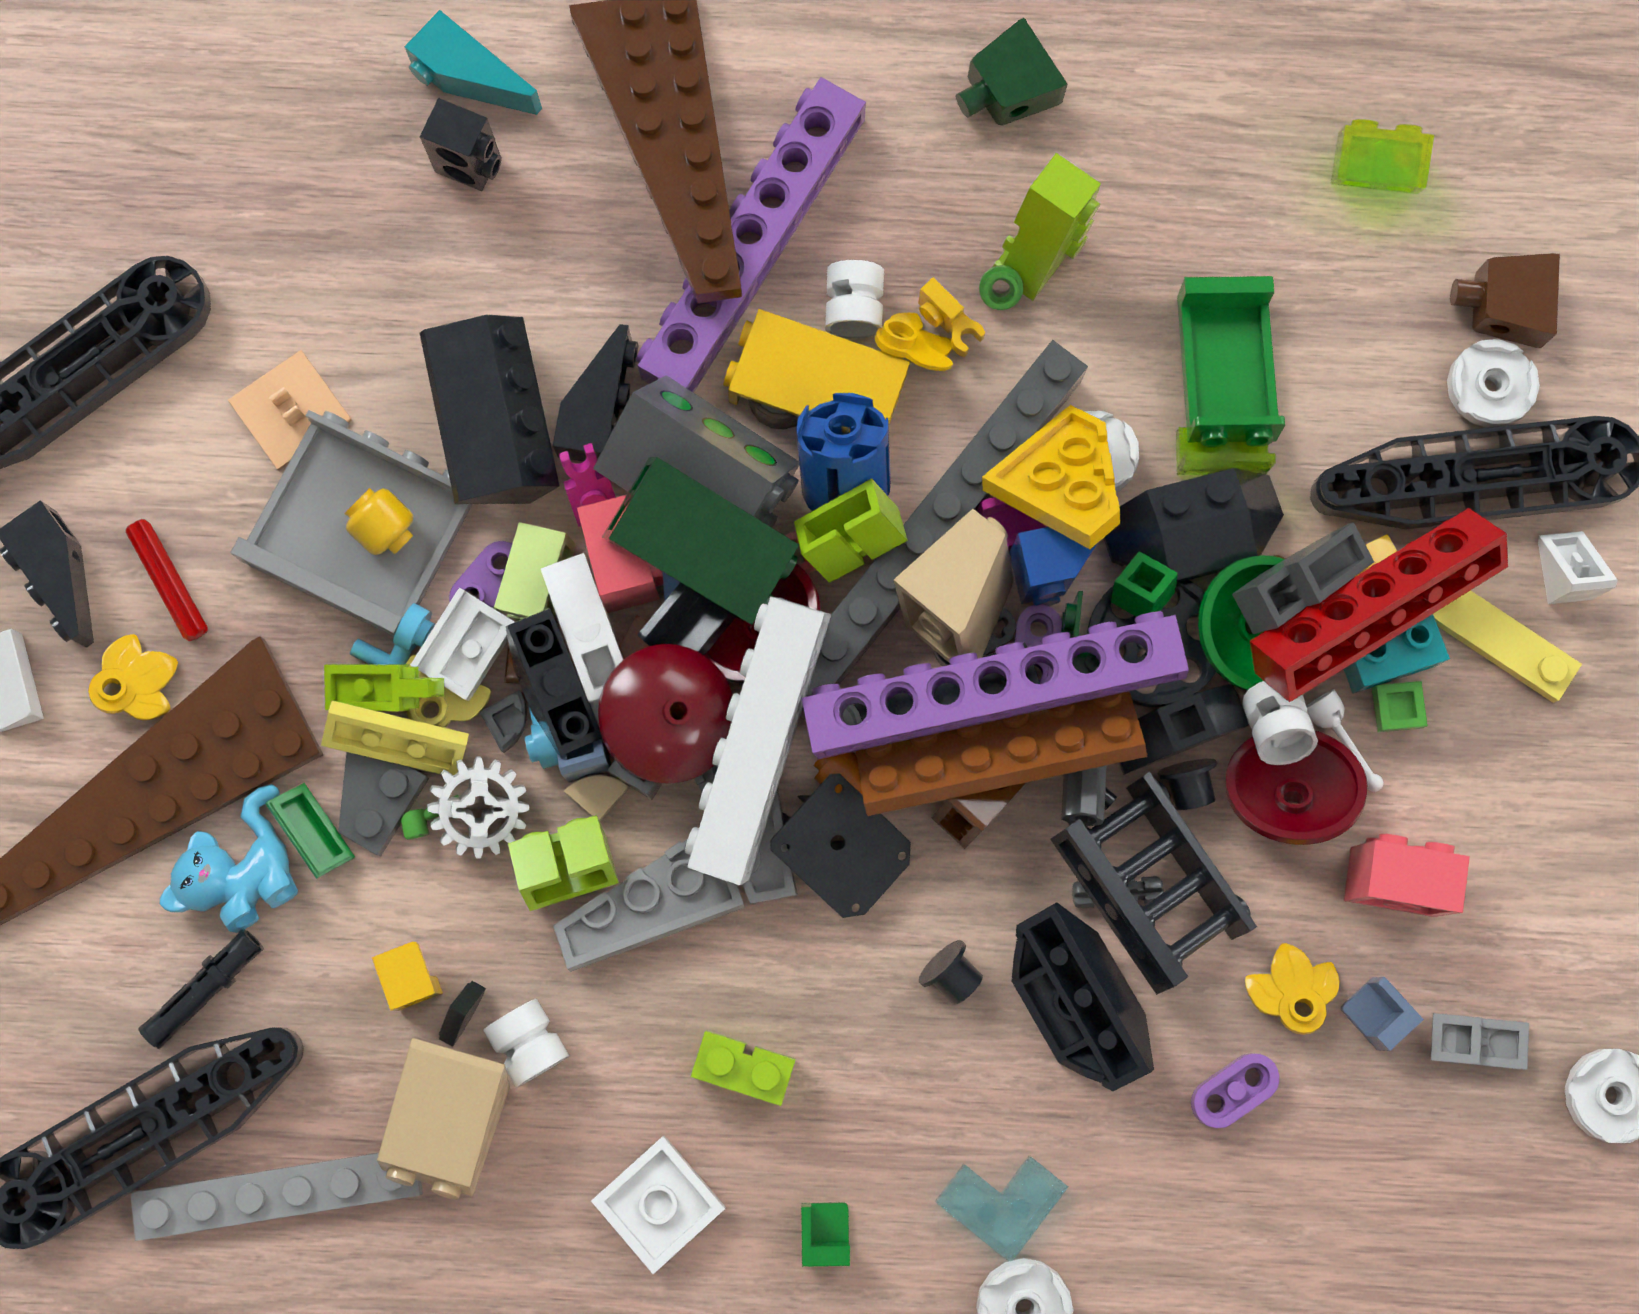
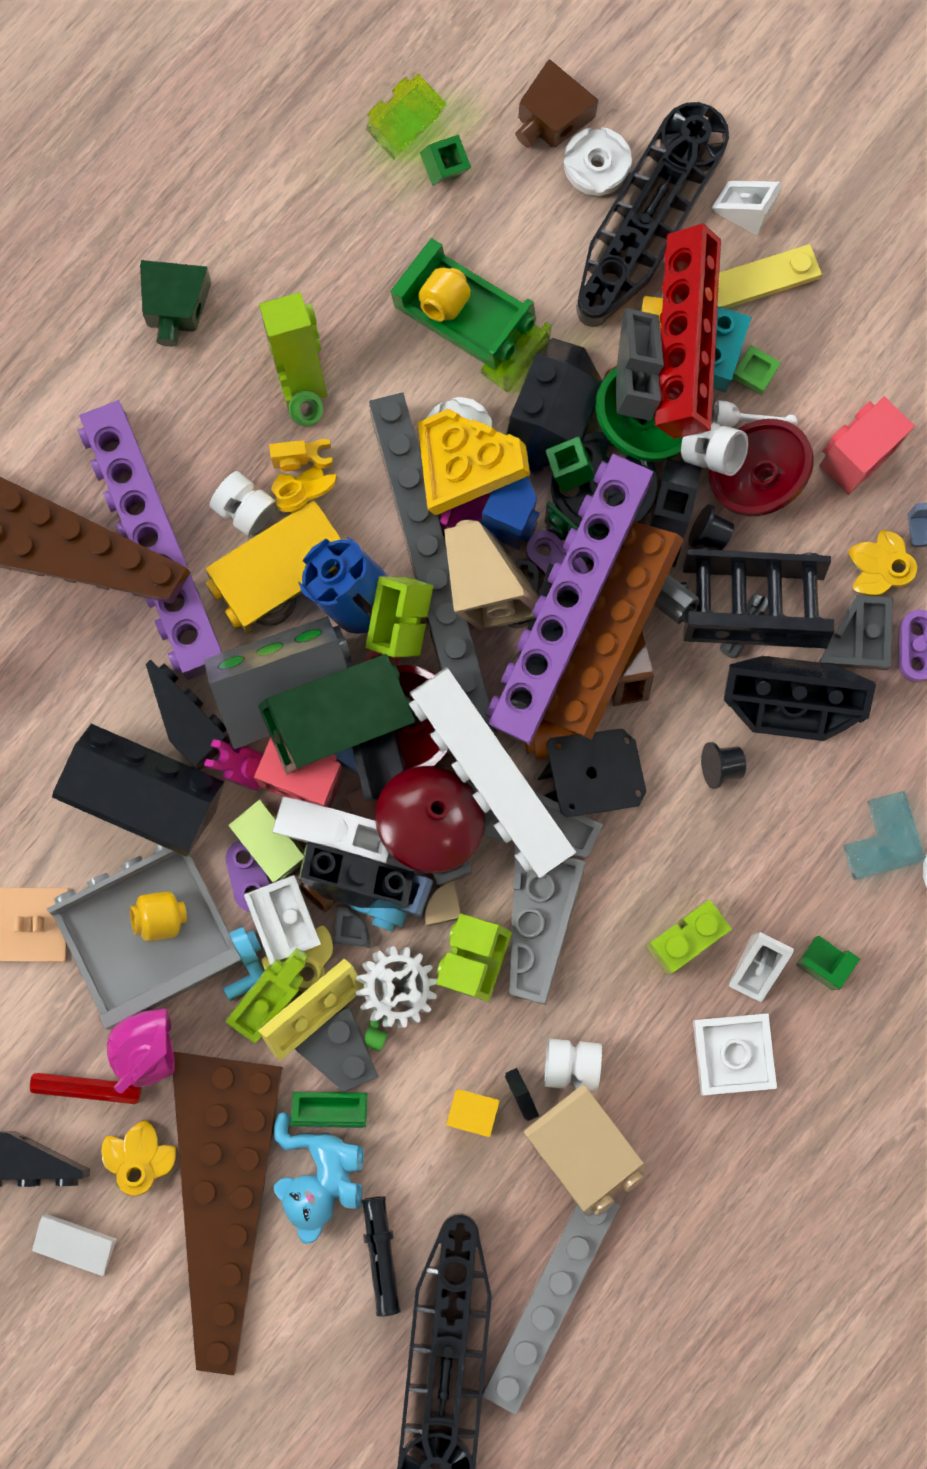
camera: 55 degrees left, 0 degrees up
(235, 603) = (141, 1049): none -> dark pink helmet
(767, 1165) = (760, 966): none -> white slope
(1201, 1023) = (863, 635): none -> dark grey wing
(1224, 332) = (444, 294): none -> yellow head
(1381, 231) = (447, 151): none -> green plate

